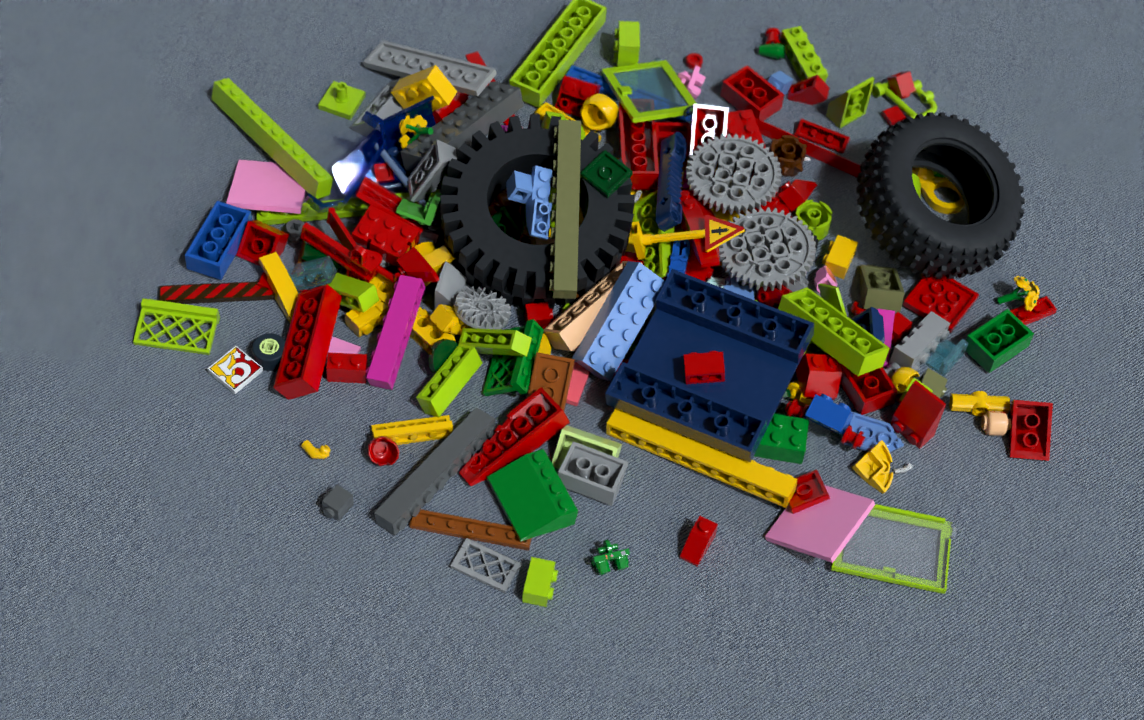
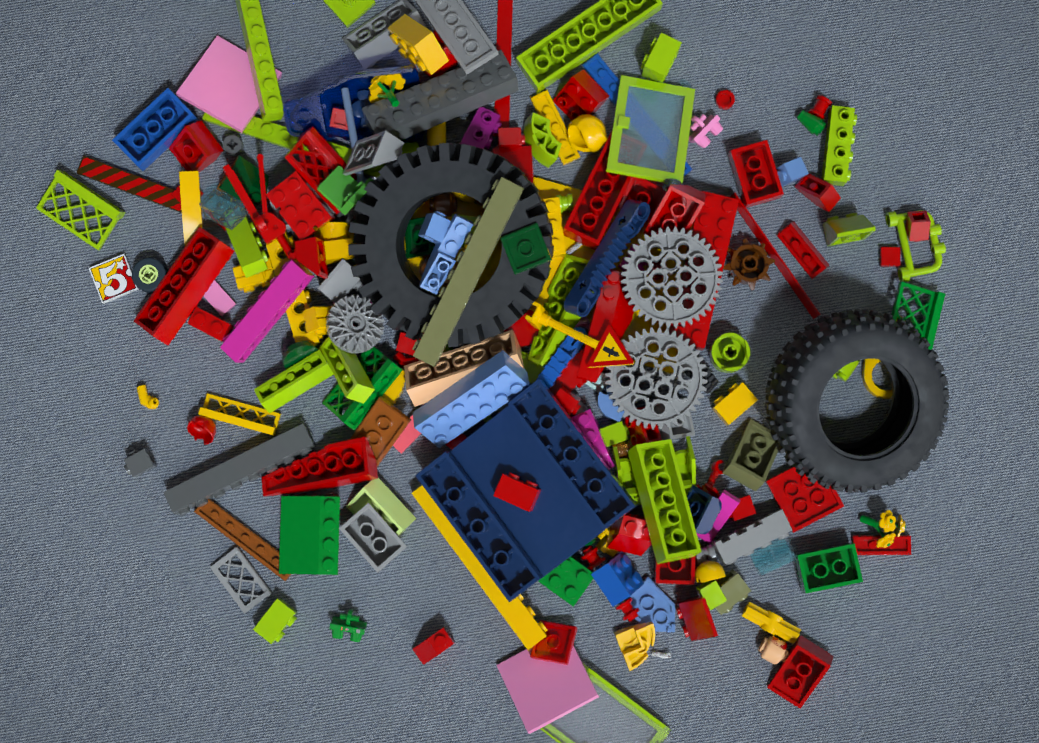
camera: 30 degrees right, 30 degrees up
(377, 123) = (267, 146): clear blue windscreen -> none
(796, 192) = (724, 323): red slope -> none
(824, 276) = (704, 425): bright pink rock -> none

